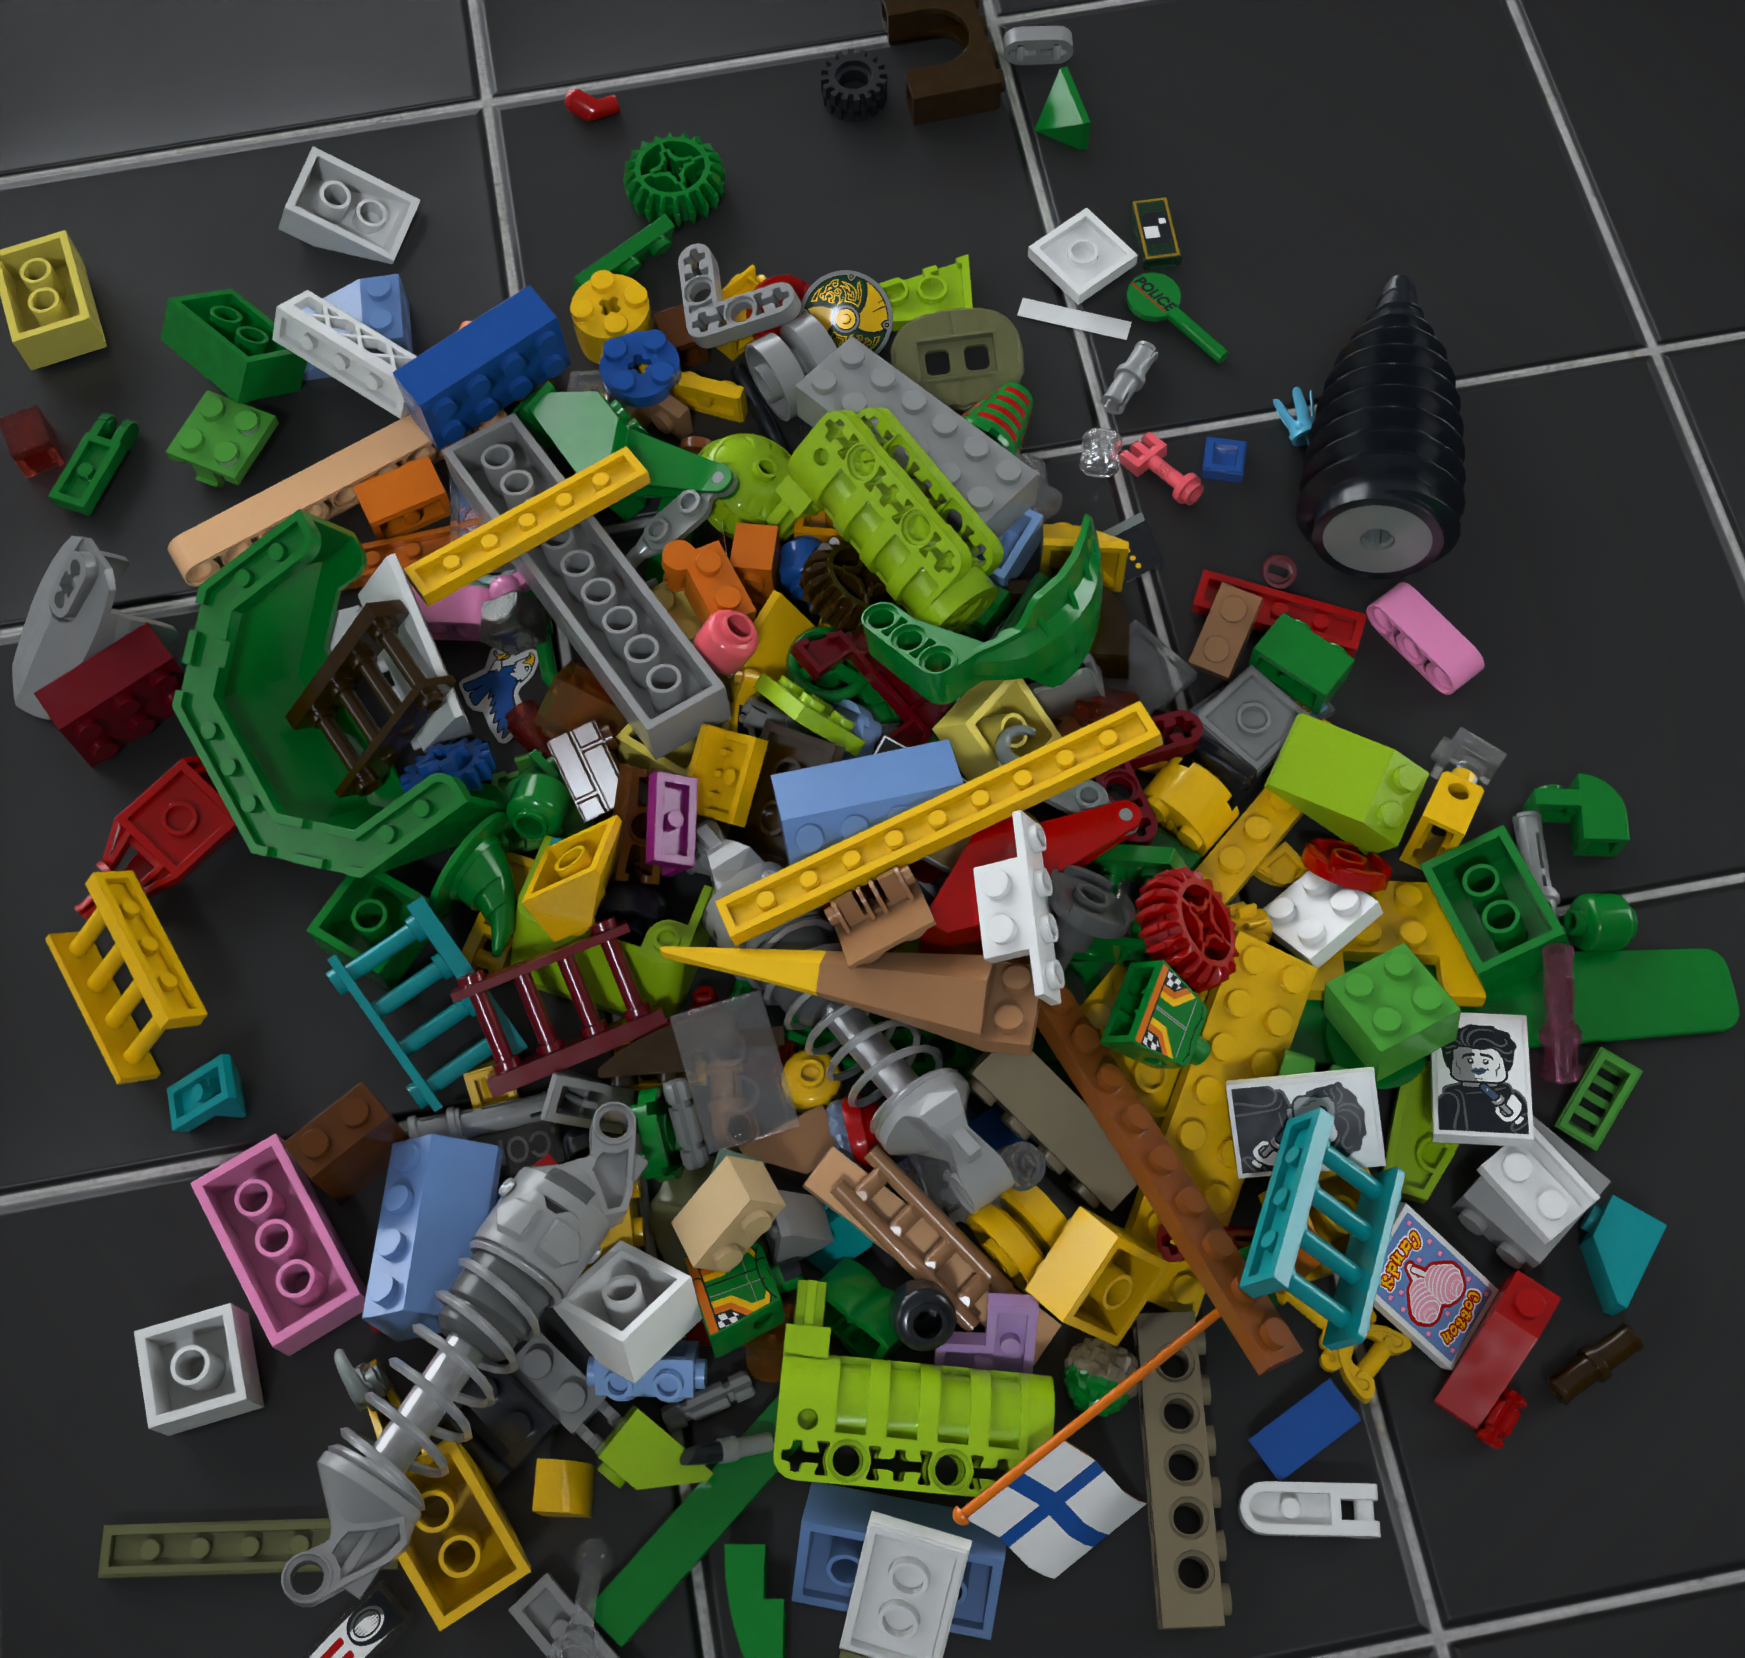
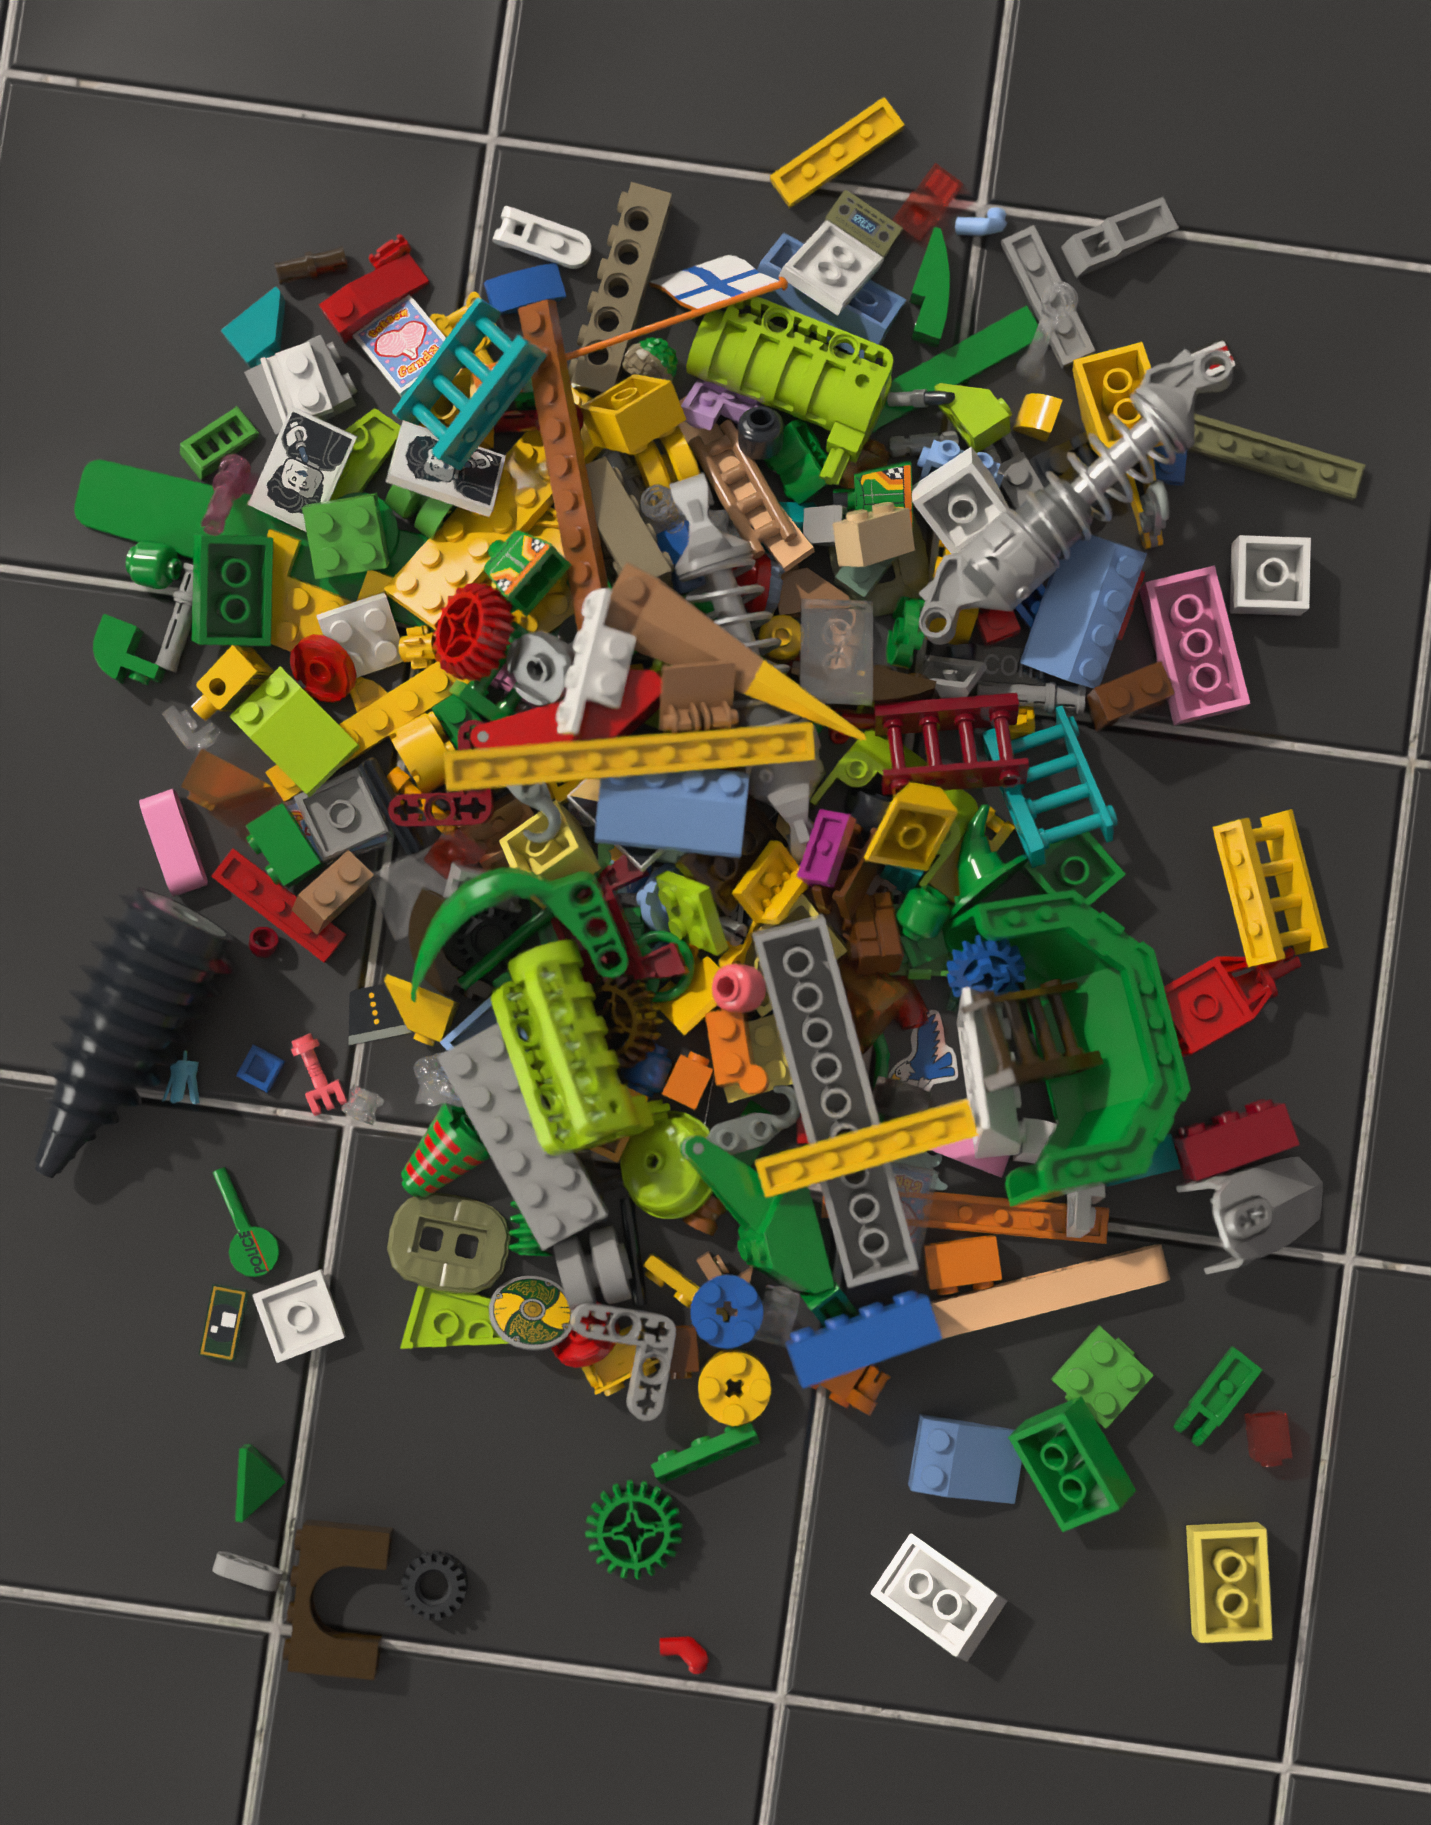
camera: 170 degrees left, 20 degrees up
(207, 1093) = (1229, 779): teal slope -> none
(340, 353) = (980, 1404): white fence -> none
(685, 1123) = (882, 634): light grey axle -> none
(1074, 318) = (329, 1259): white sticker -> none
(1129, 377) = (308, 1173): light grey pin -> none
(1400, 703) = (221, 784): none -> clear orange slope

